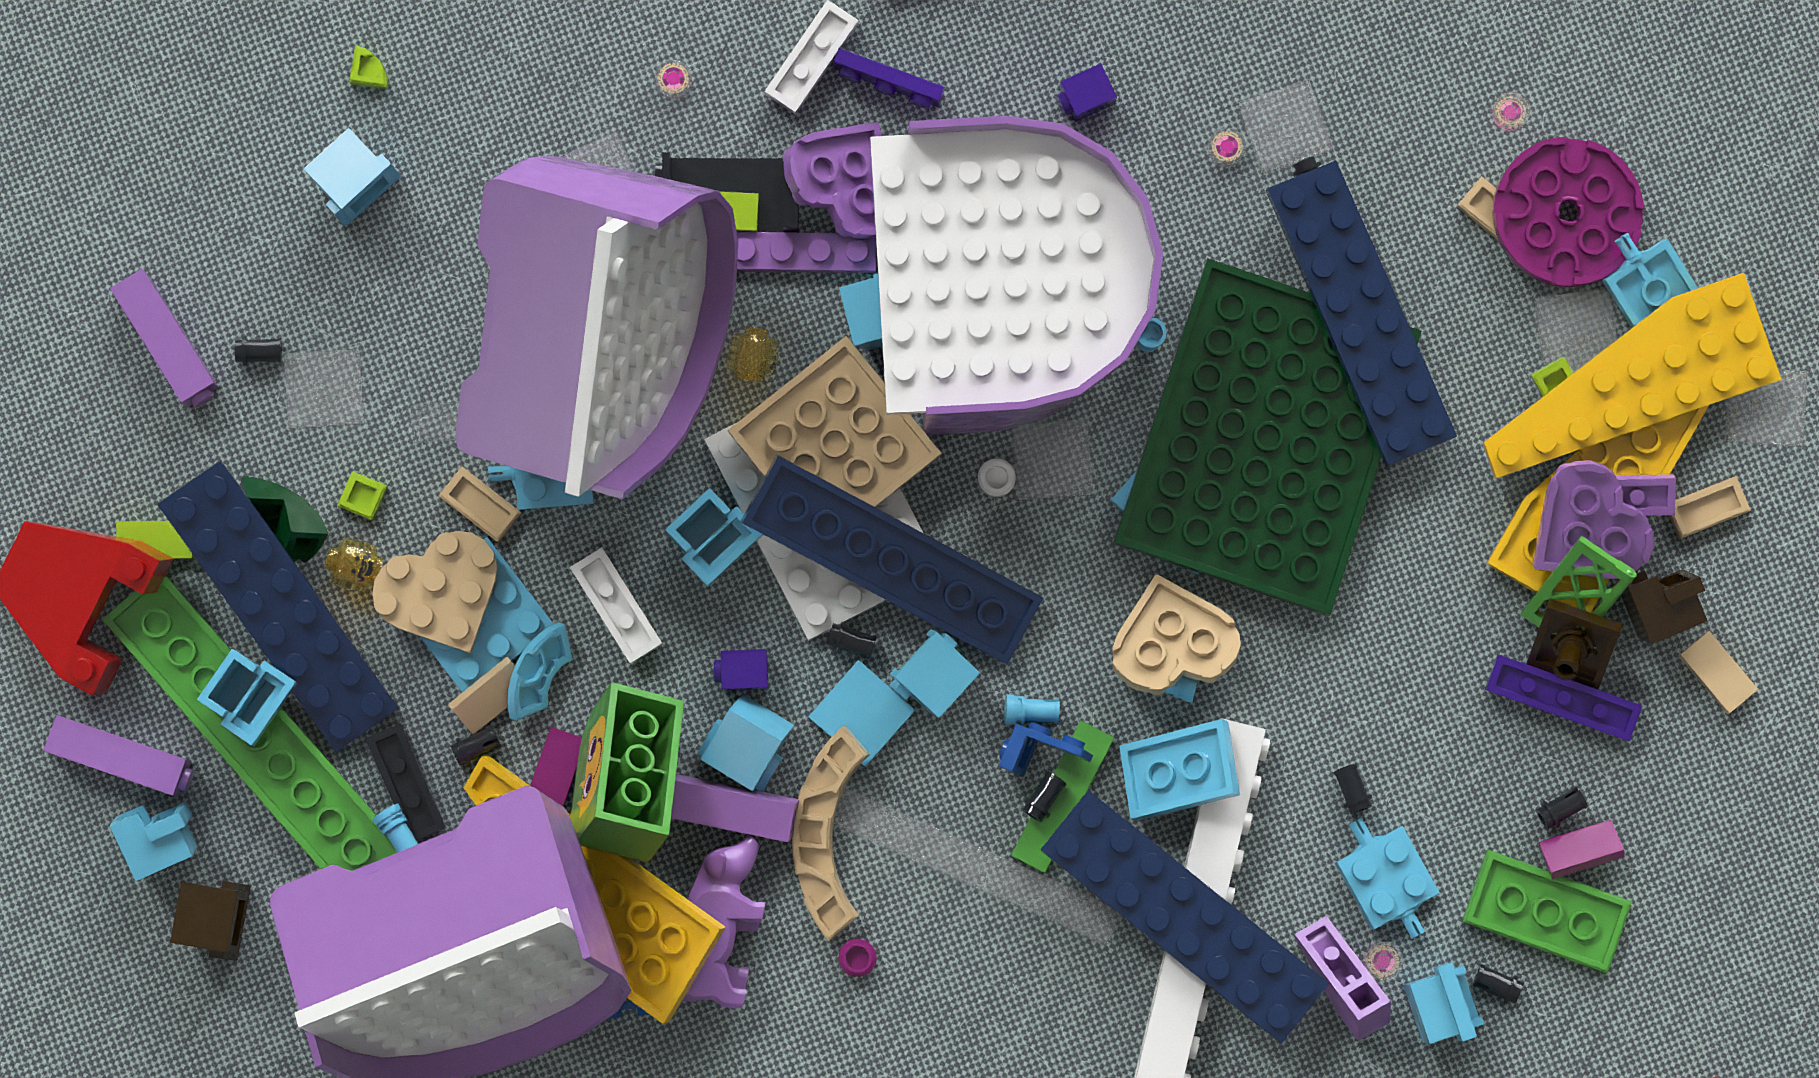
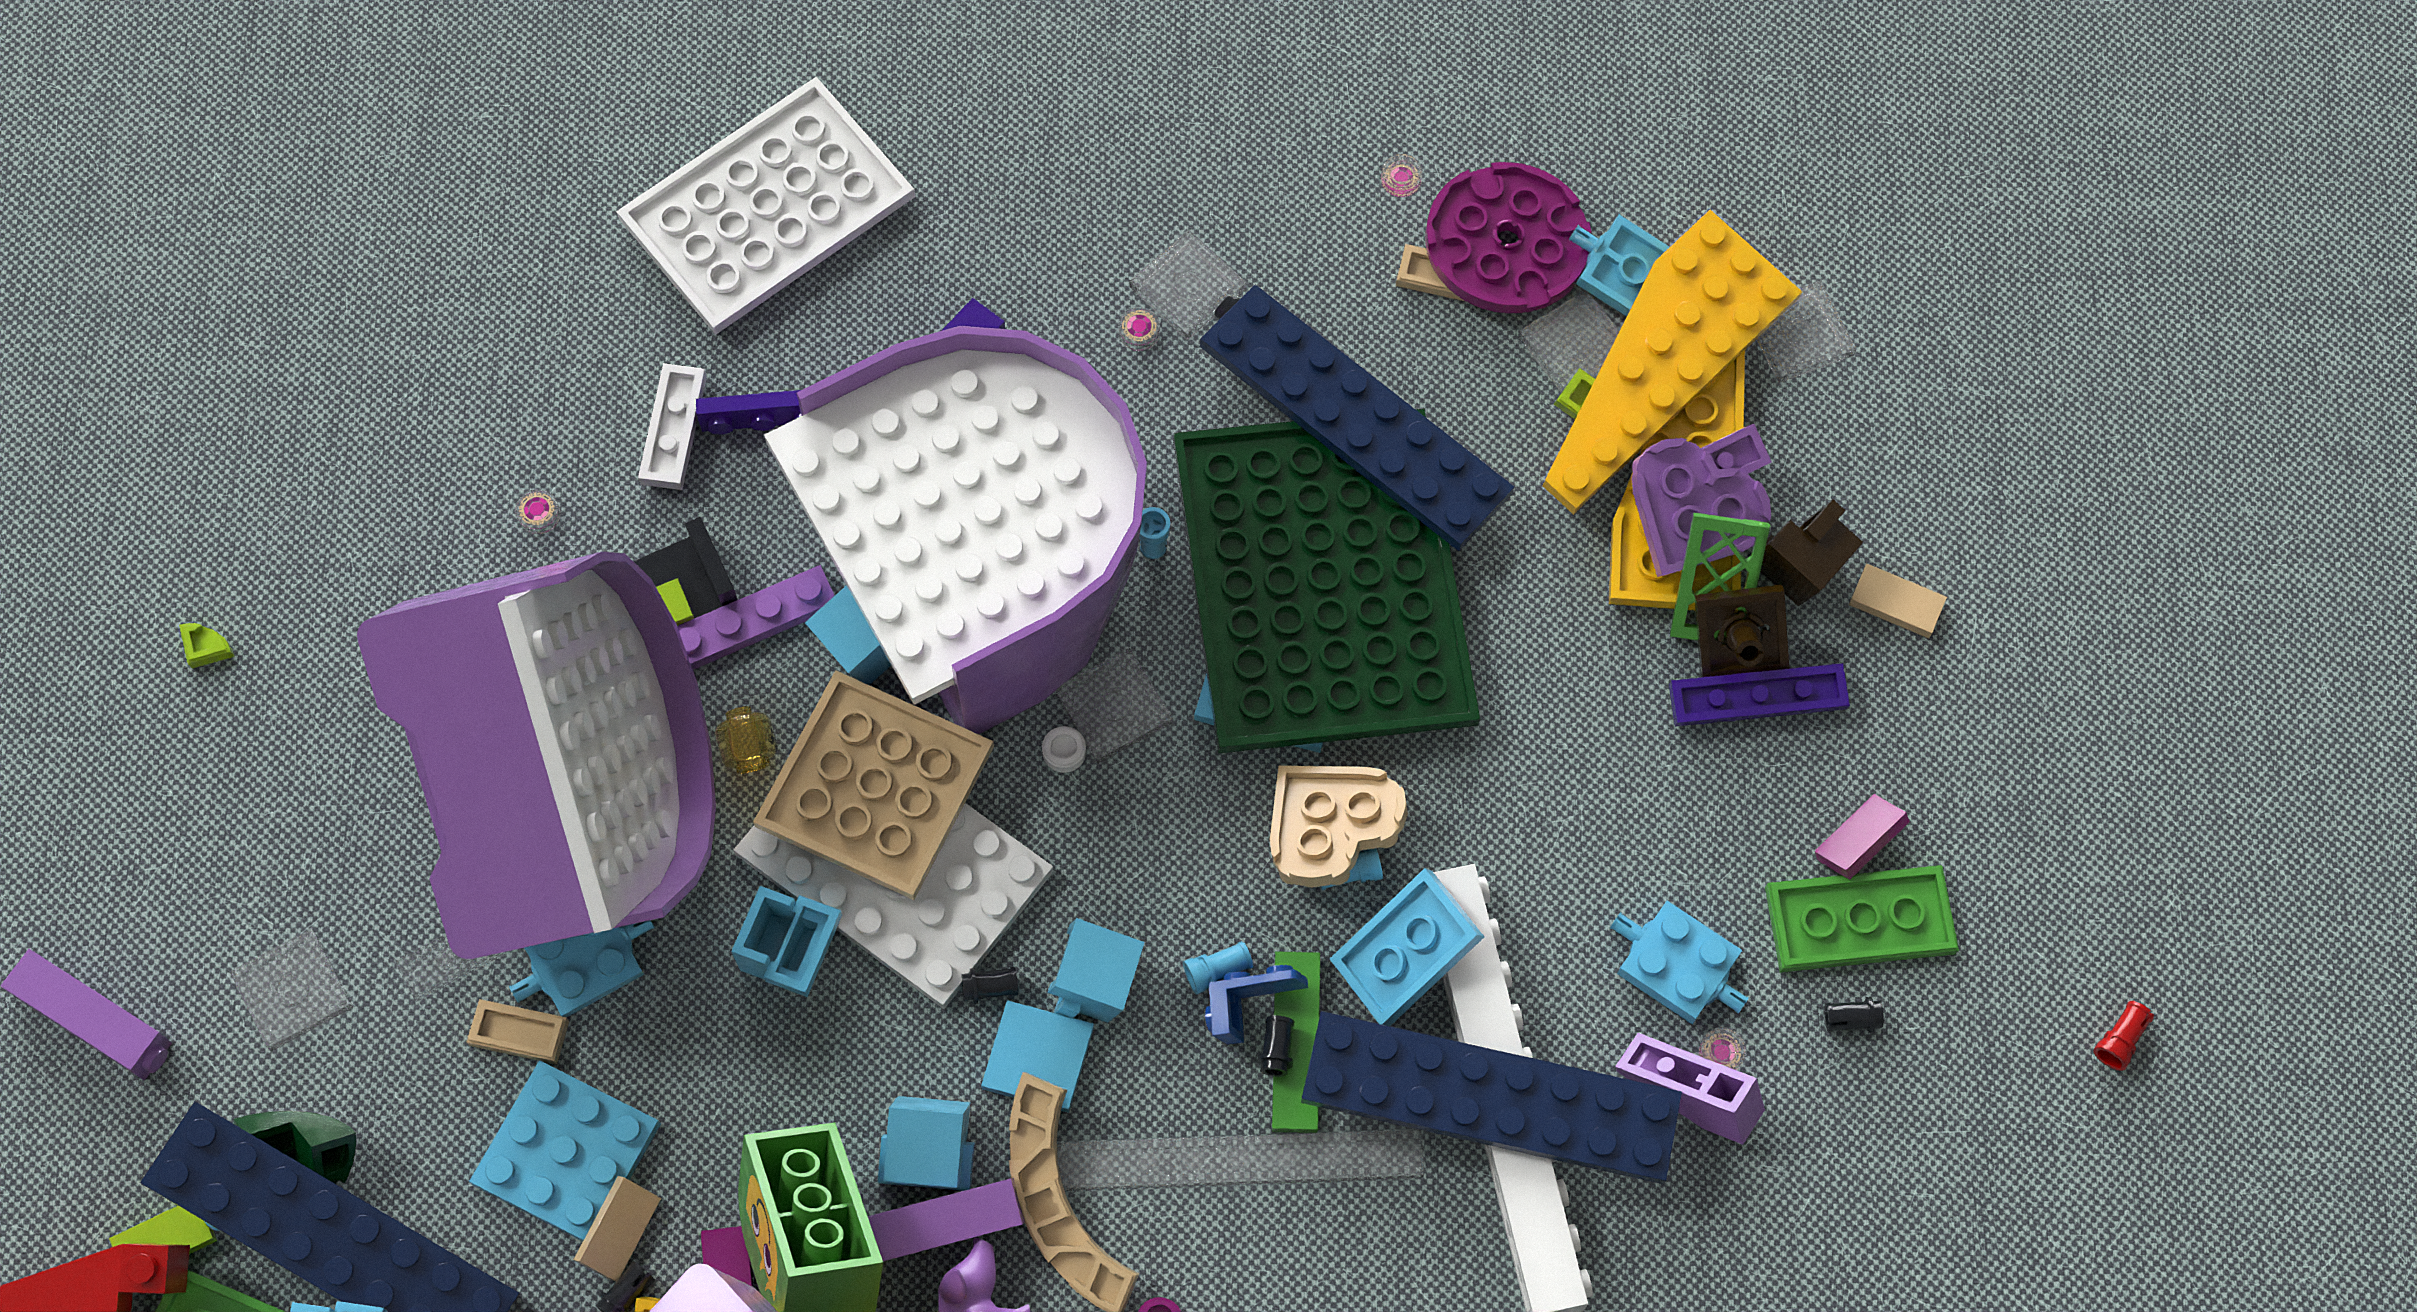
camera: 25 degrees left, 15 degrees down
(258, 350) = (198, 981): black pin -> none
(351, 176) = (227, 751): plate -> none
(353, 564) = (401, 1158): clear yellow head -> none
(362, 496) = (381, 1083): lime tile -> none
(440, 592) = (512, 1141): tan plate -> none
(535, 671) = (657, 1177): medium azure tile -> none
(616, 605) = (716, 1067): white plate -> none
(742, 670) = (886, 1069): dark purple brick -> none
(836, 173) = (756, 517): medium lavender plate -> none
(891, 559) = (990, 871): dark blue plate -> none
(1353, 789) = (1596, 887): black pin -> none
(1443, 1005) = (1809, 1062): medium azure plate -> none
(1561, 808) = (1813, 813): black pin -> none
(1709, 507) = (1798, 450): tan tile -> none

